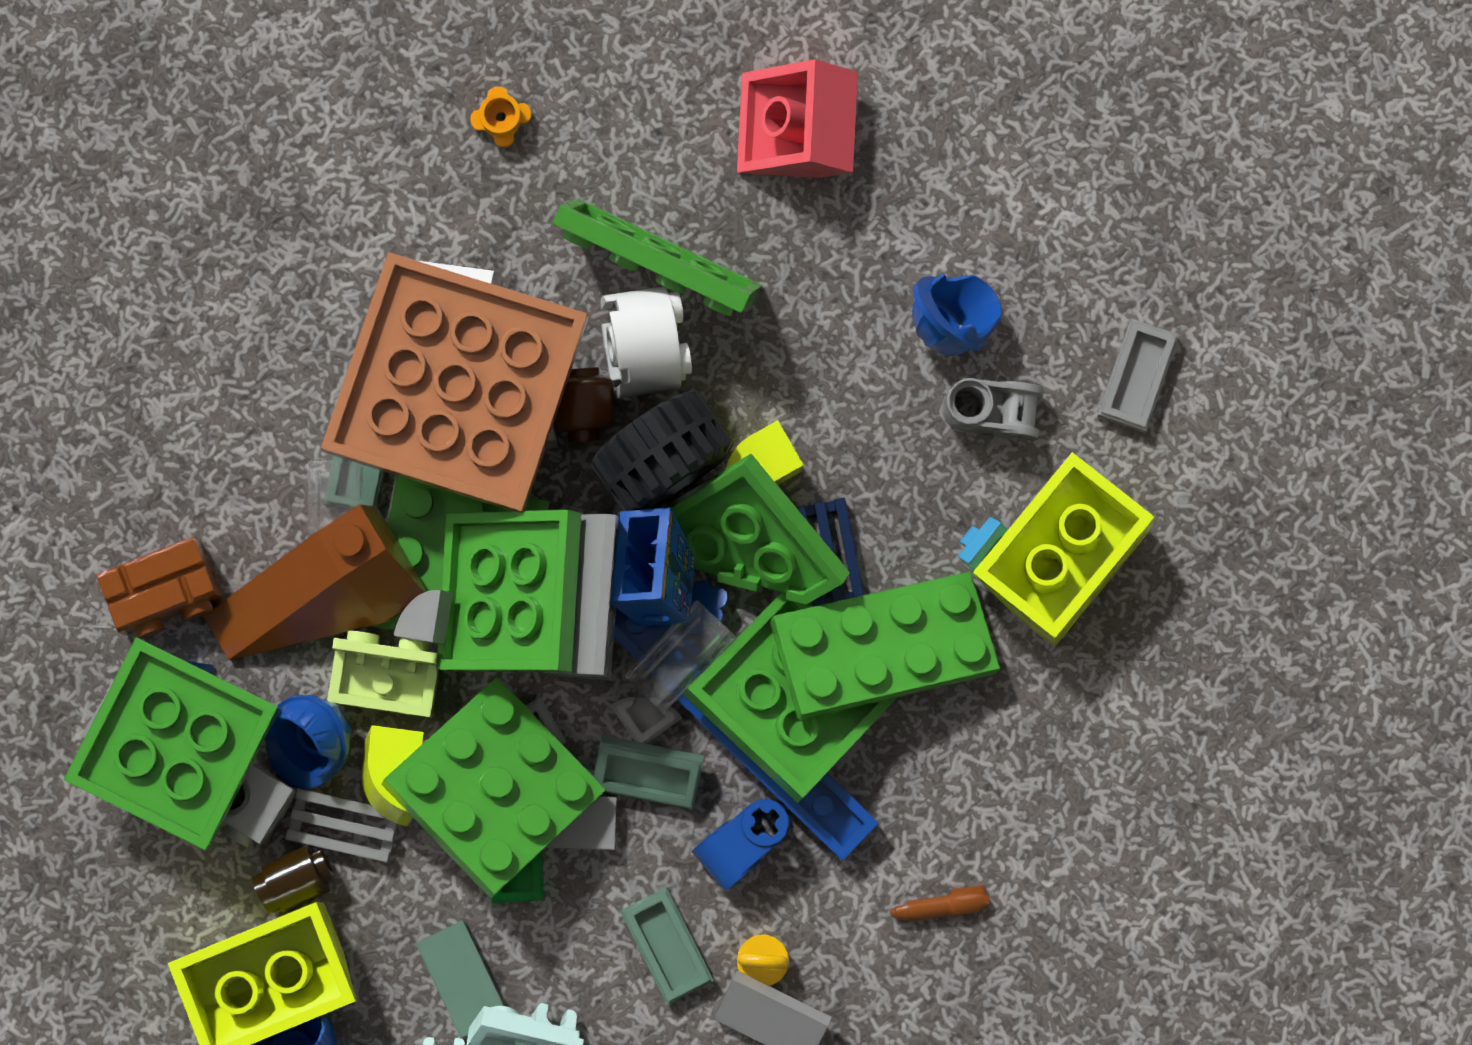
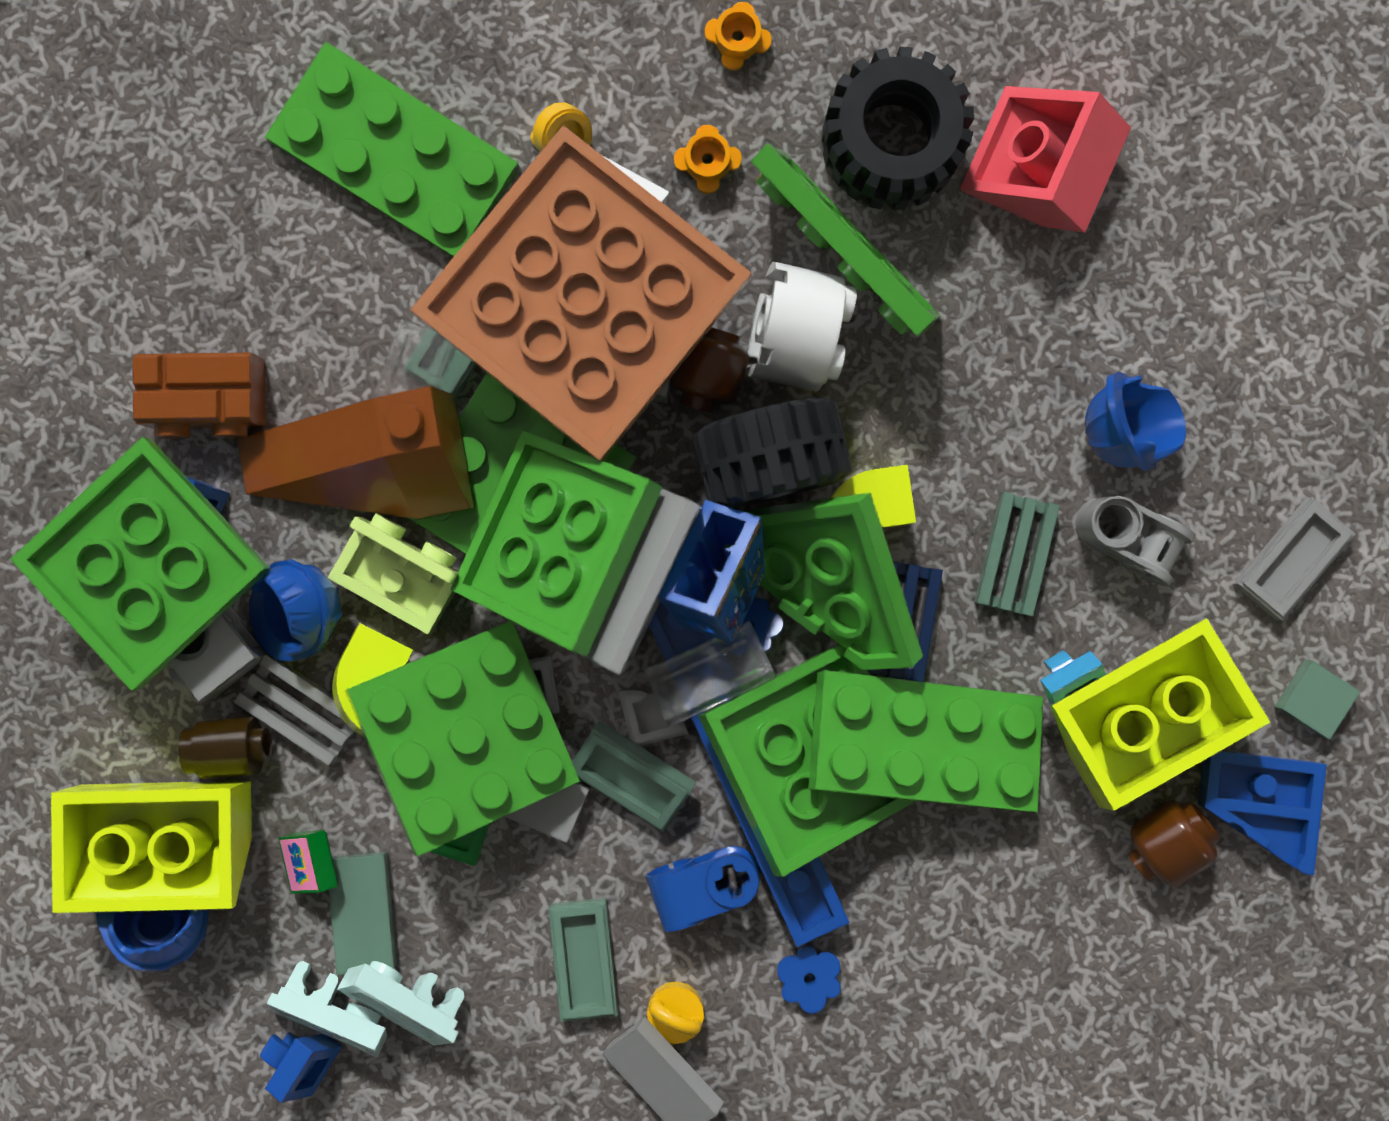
camera: 20 degrees right, 5 degrees up
(245, 324) = (391, 150): none -> bright green plate
(375, 250) = (556, 116): none -> yellow tile
(400, 949) = (308, 862): none -> tile
(426, 617) = (459, 532): light grey tile -> none
(508, 215) = (710, 142): none -> light orange plate
(654, 105) = (908, 84): none -> black tyre
(849, 886) = (809, 994): none -> blue plant
(897, 417) = (1038, 560): none -> sand green tile
(957, 903) = (893, 1030): dark orange piece -> none
(1125, 651) = (1173, 843): none -> reddish brown head
(1191, 587) = (1267, 801): none -> blue wing
(1203, 485) = (1317, 699): none -> sand green tile

